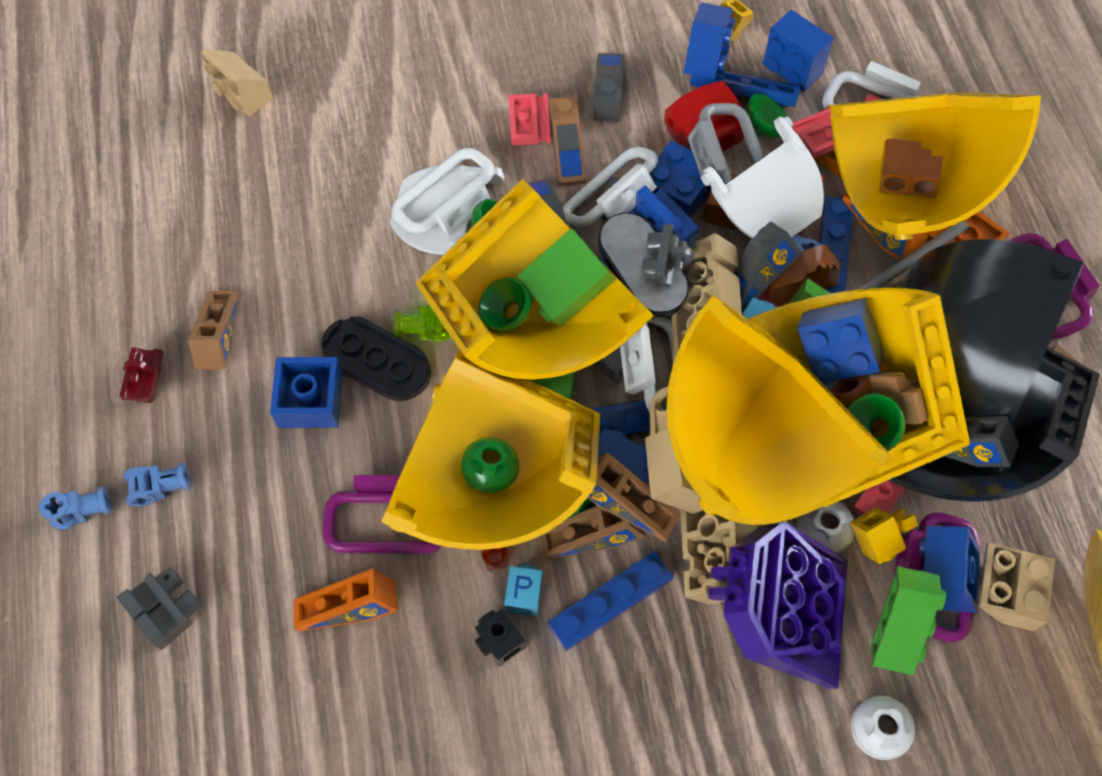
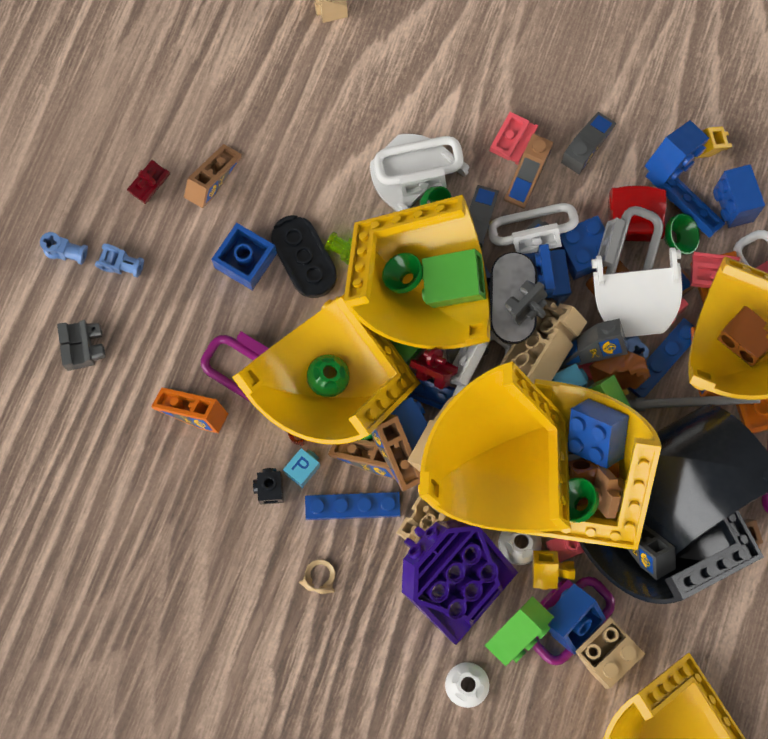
camera: 30 degrees right, 10 degrees up
(605, 380) = (433, 365): none -> dark red hips
(643, 714) = (327, 586): none -> tan piece

